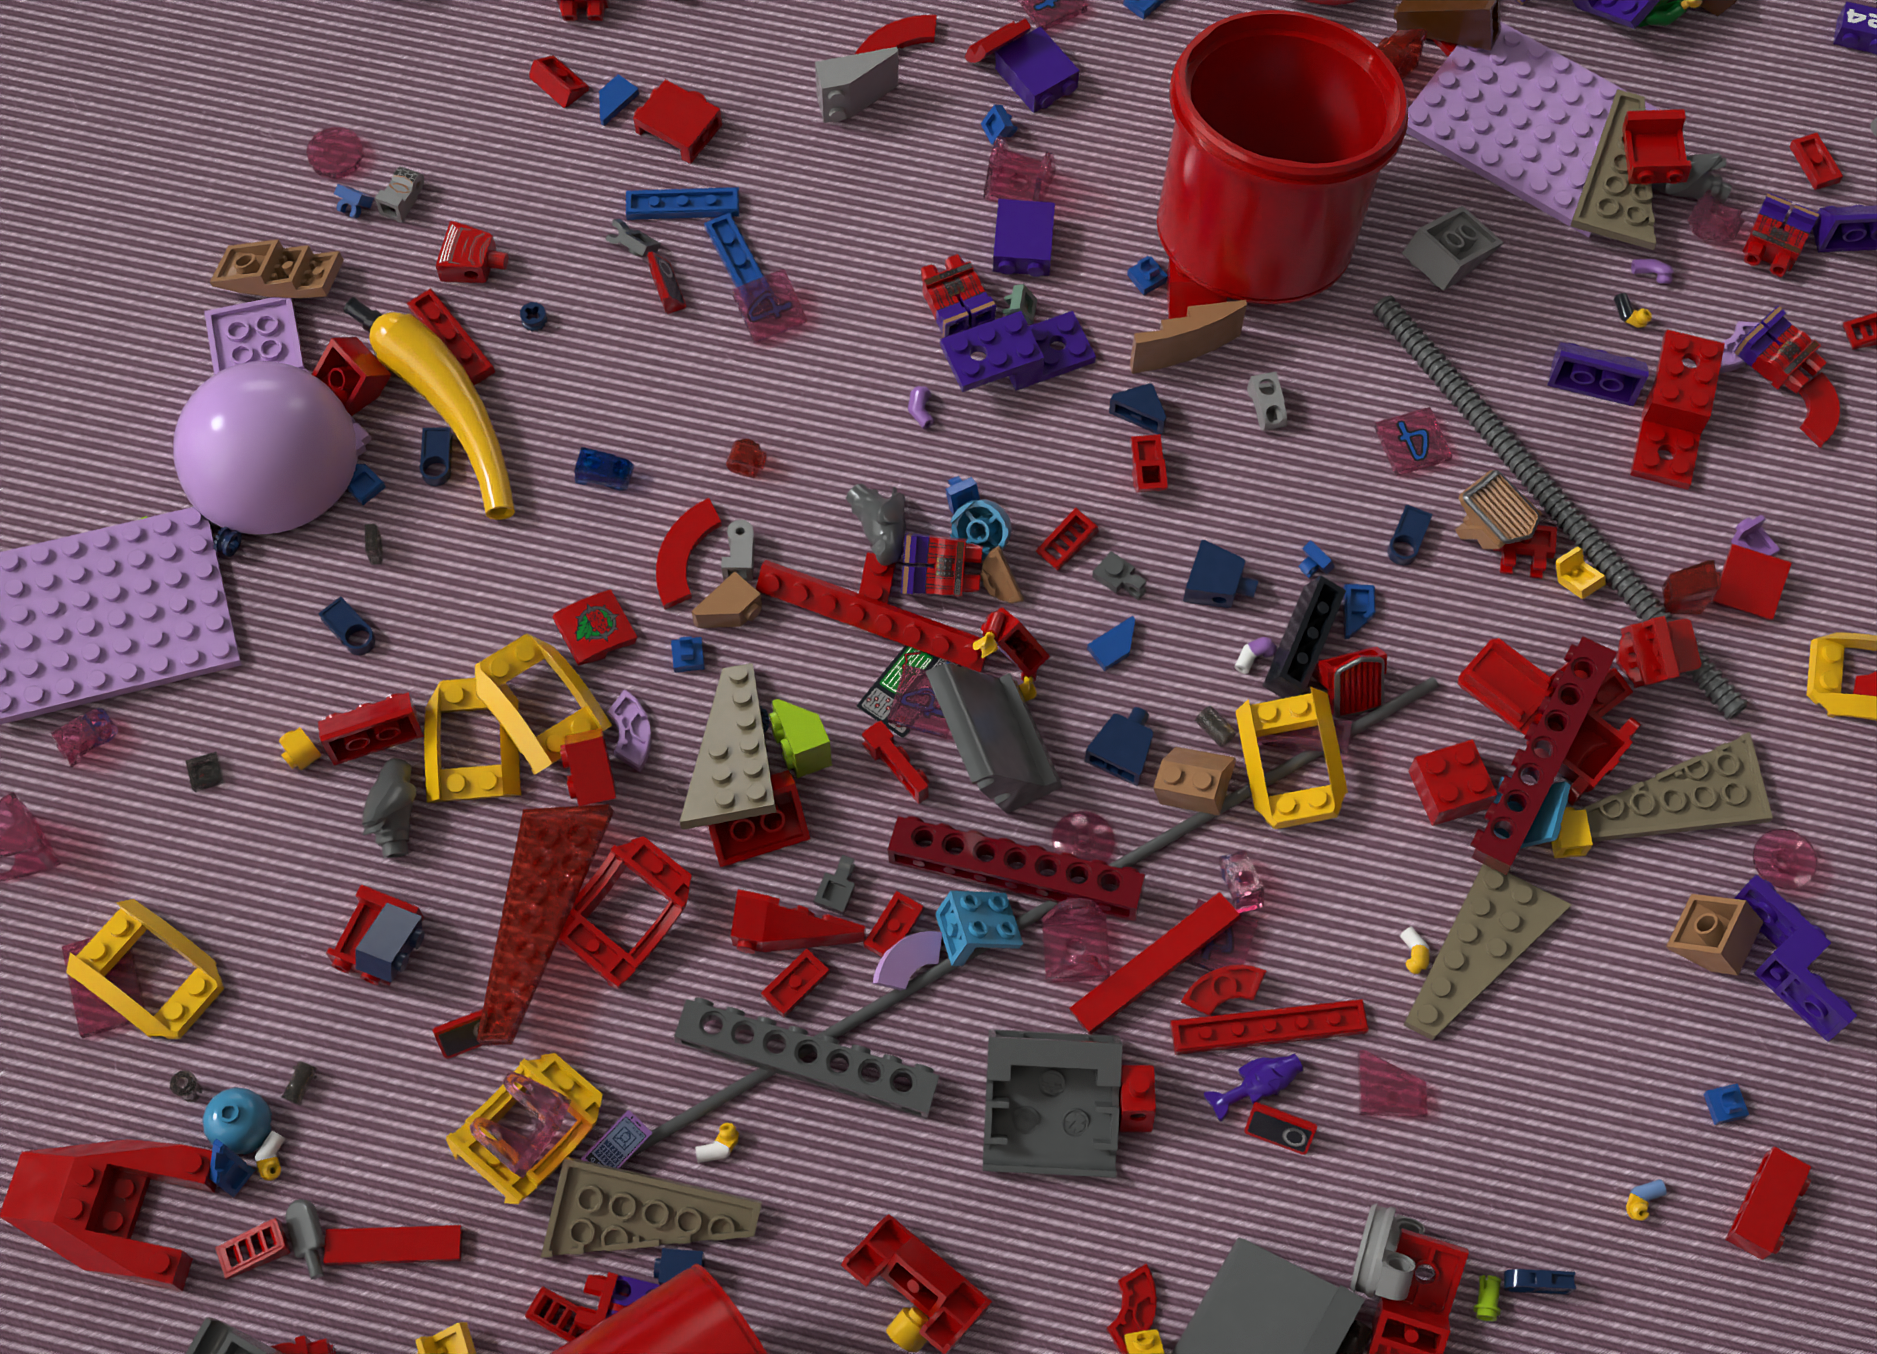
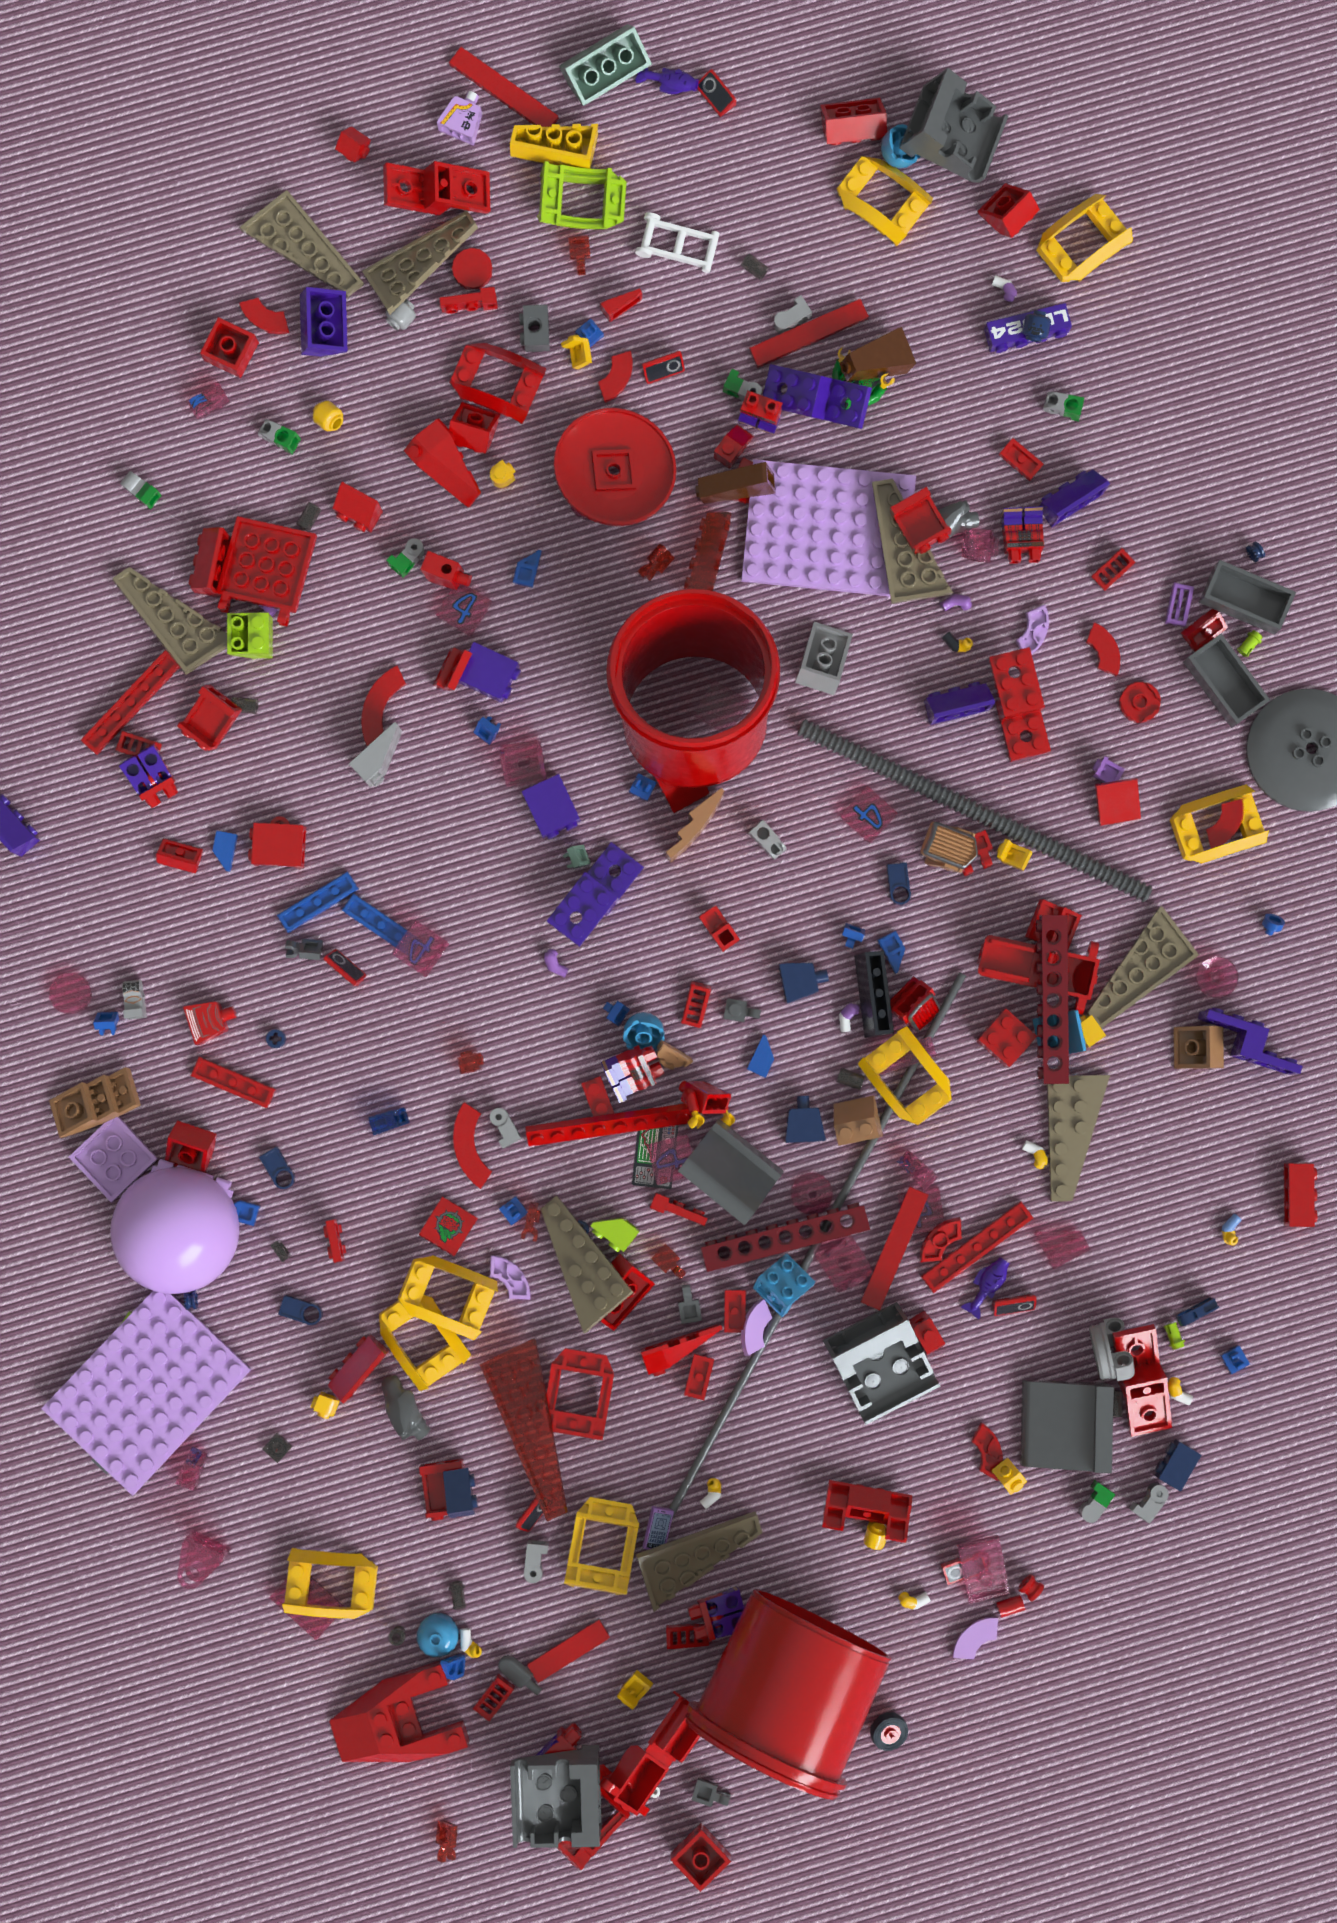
camera: 30 degrees left, 20 degrees up
(426, 1095) = (533, 1569): none -> light grey leg
(435, 373) = (243, 1118): yellow animal -> none
(448, 554) = (336, 1249): none -> red plate
(511, 1148) = (613, 1556): clear pink hose -> none
(589, 766) = (506, 1324): red brick -> none
(676, 1261) = (733, 1574): dark blue brick -> none
(704, 670) = (532, 1216): none -> clear red plate
(728, 605) = (520, 1166): medium nougat slope -> none
(845, 819) = (667, 1260): none -> clear red plate
(881, 521) = (579, 1060): dark grey animal -> none
(915, 1101) = (806, 1407): dark grey brick -> none
(956, 296) = (528, 869): hips -> none
(1139, 407) = (692, 888): dark blue slope -> none
(1657, 650) = (1086, 886): red piece -> none
(1691, 588) = (1085, 830): clear red slope -> none
(1726, 1104) = (1250, 1146): blue tile -> none
(1779, 351) = (1063, 625): hips -> none
(1837, 490) = (1139, 702): none -> red tile

